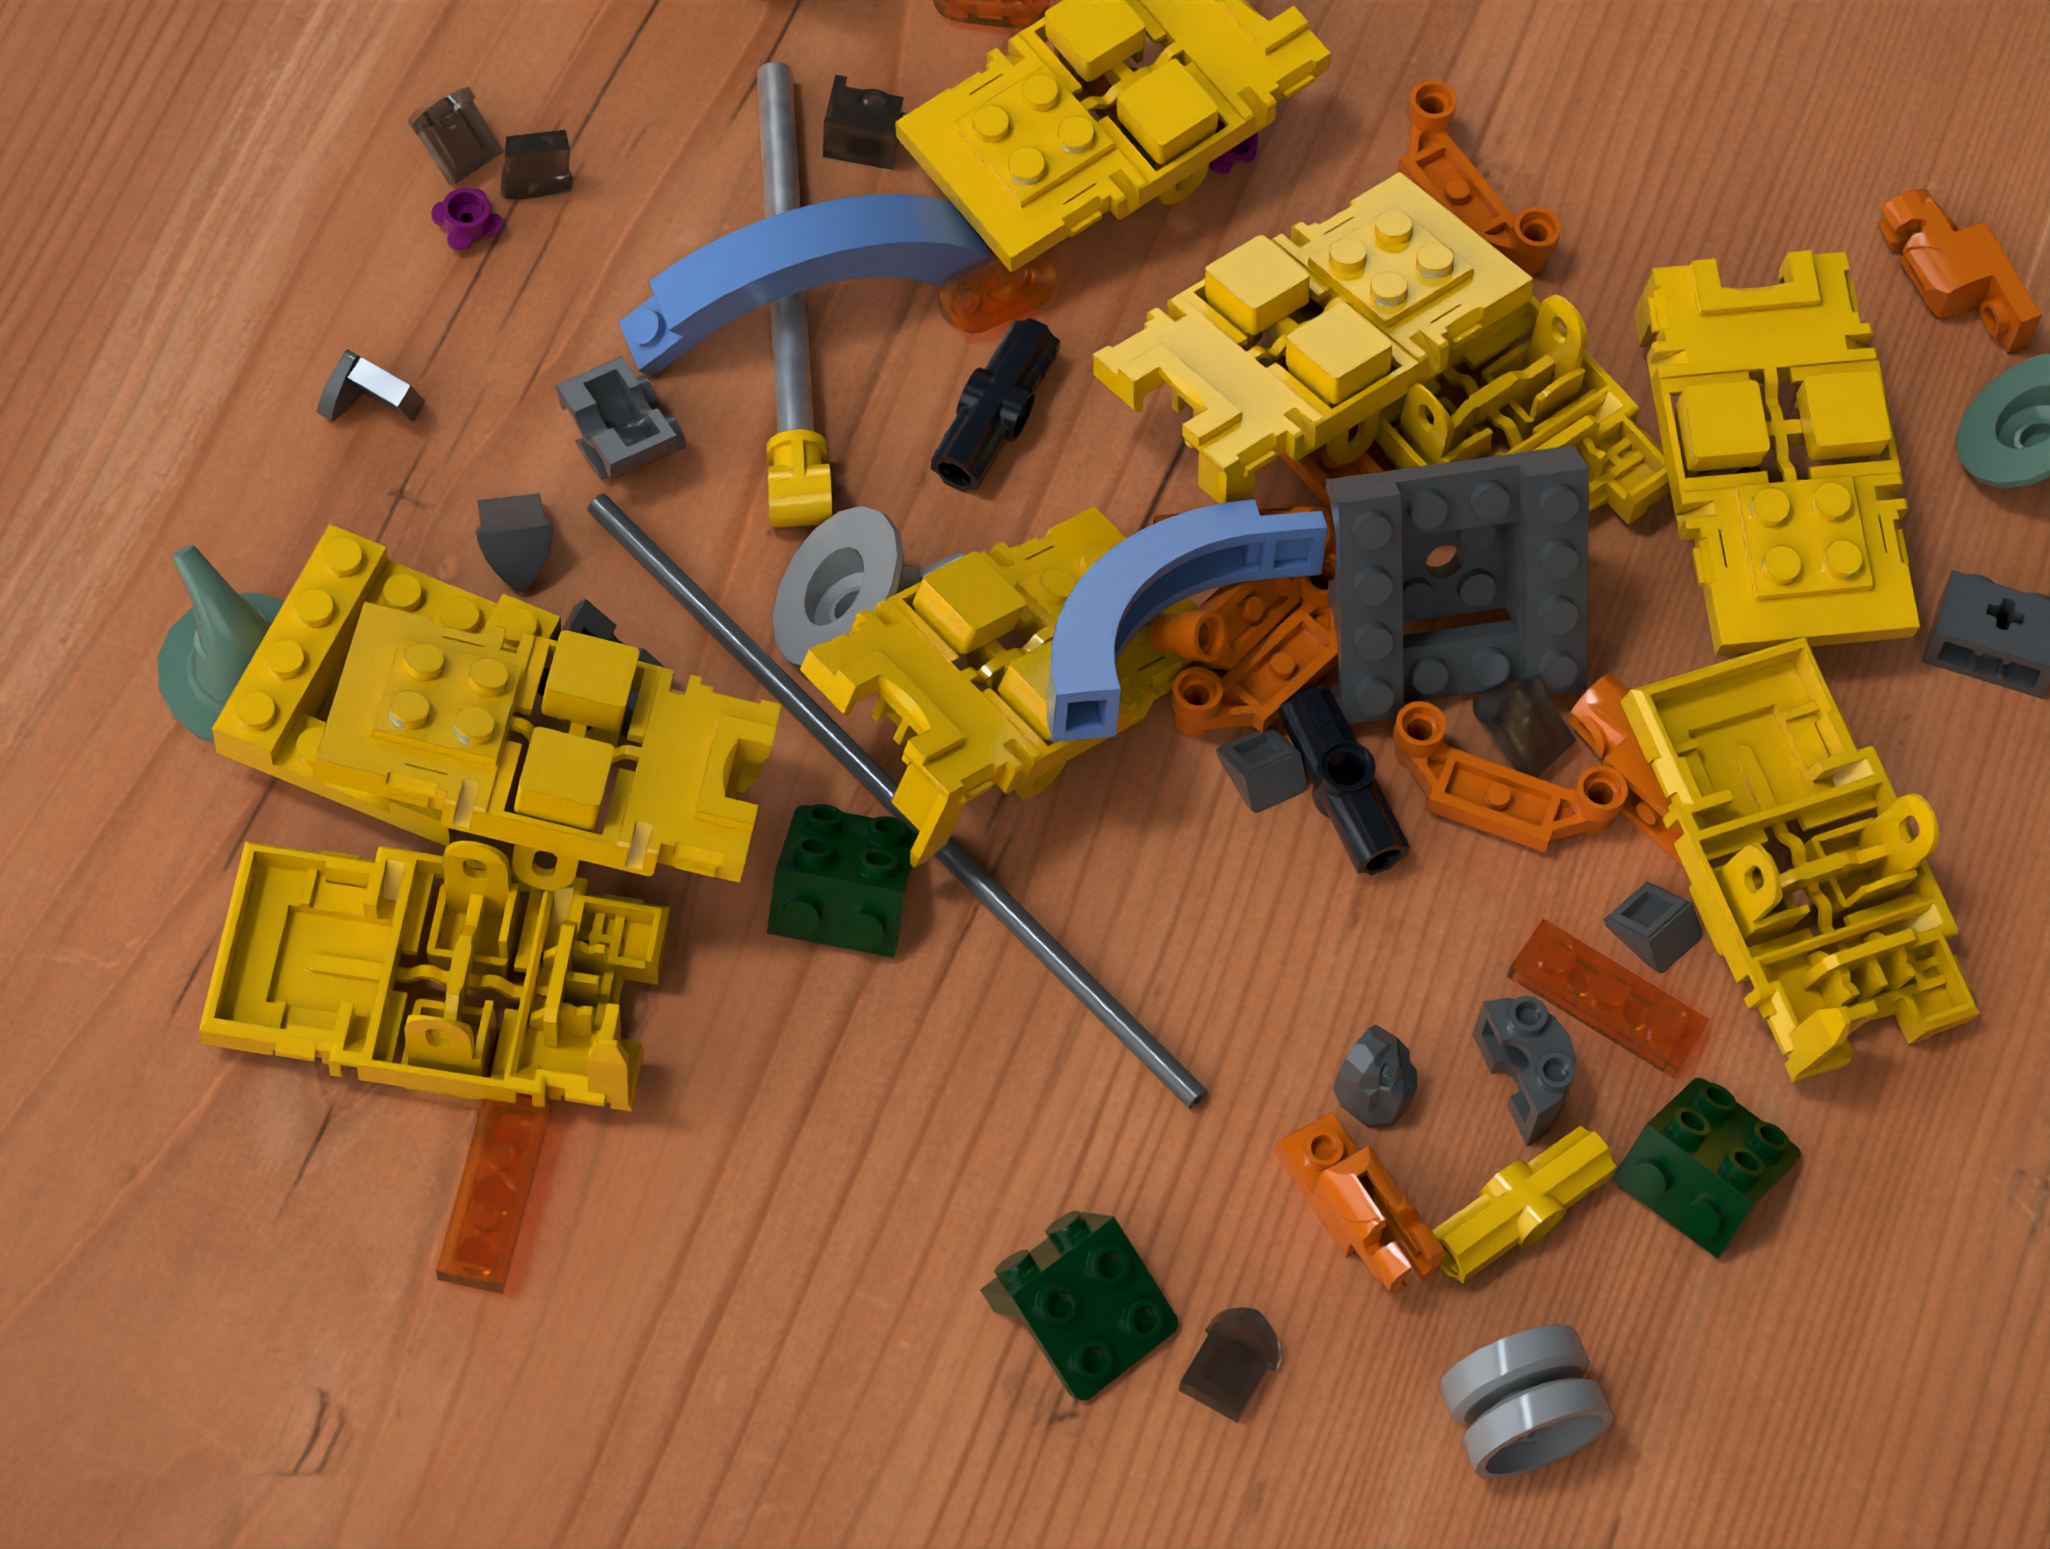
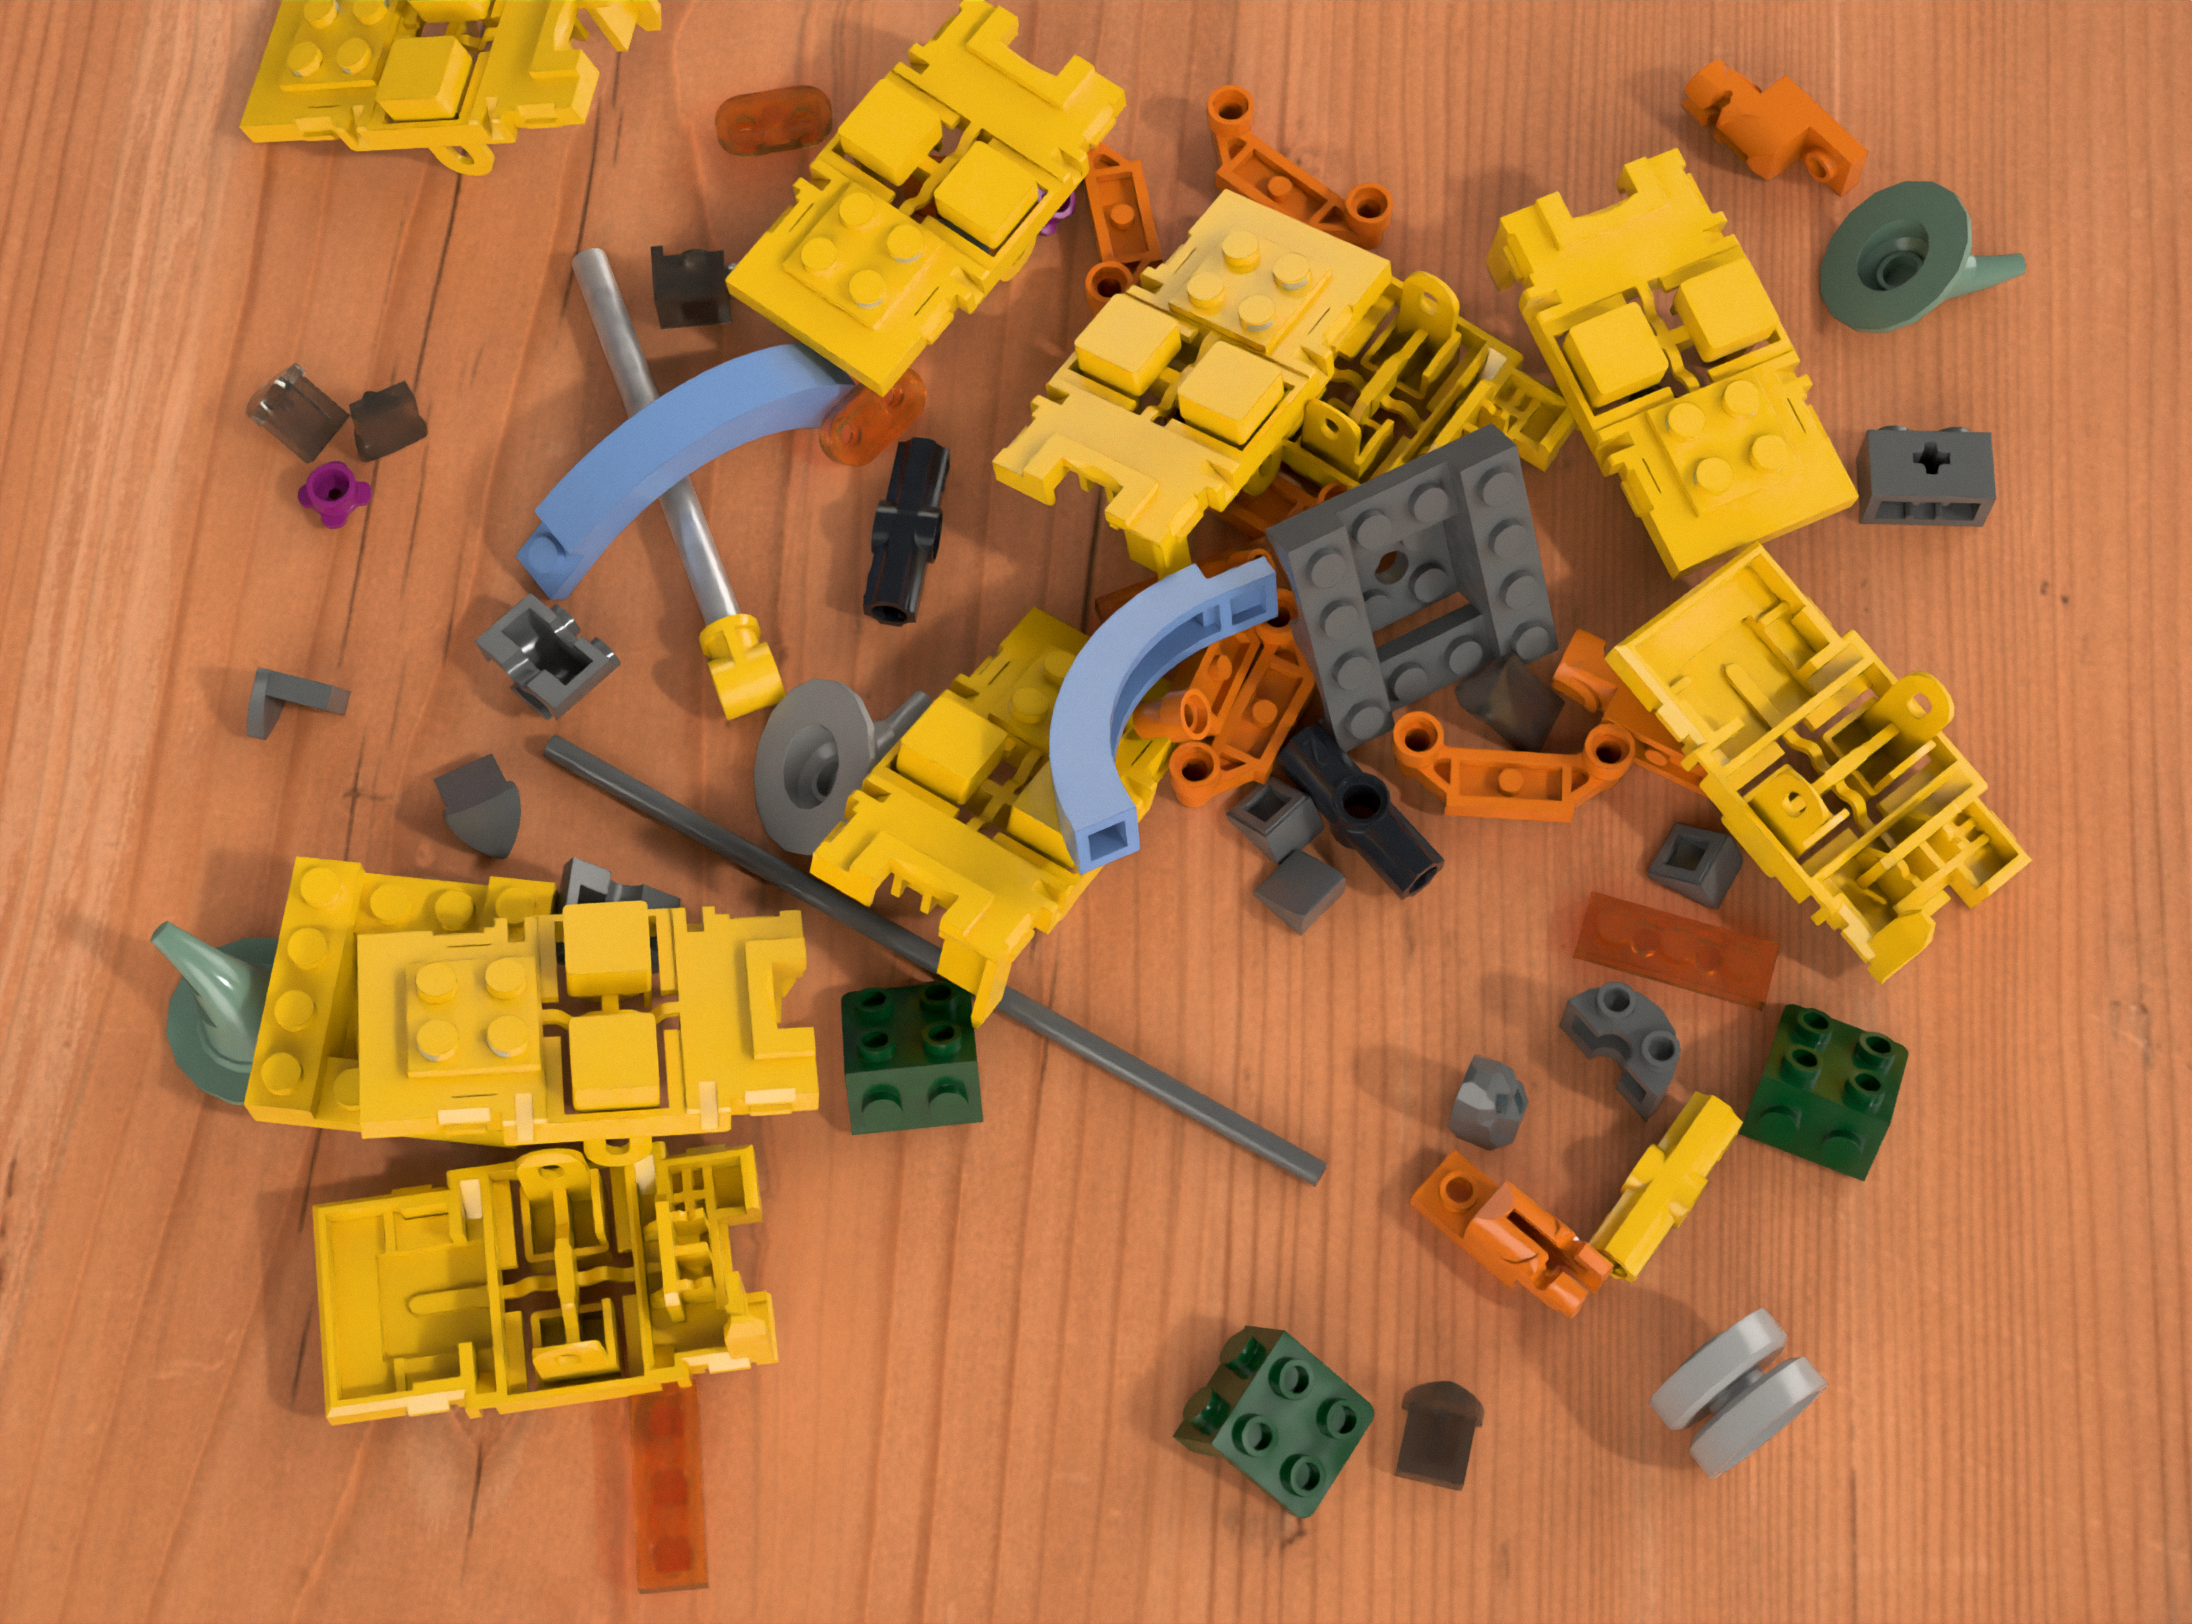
camera: 10 degrees left, 5 degrees up
(1265, 838) = (1301, 890): none -> dark grey slope
(1293, 174) = (1120, 224): none -> orange plate

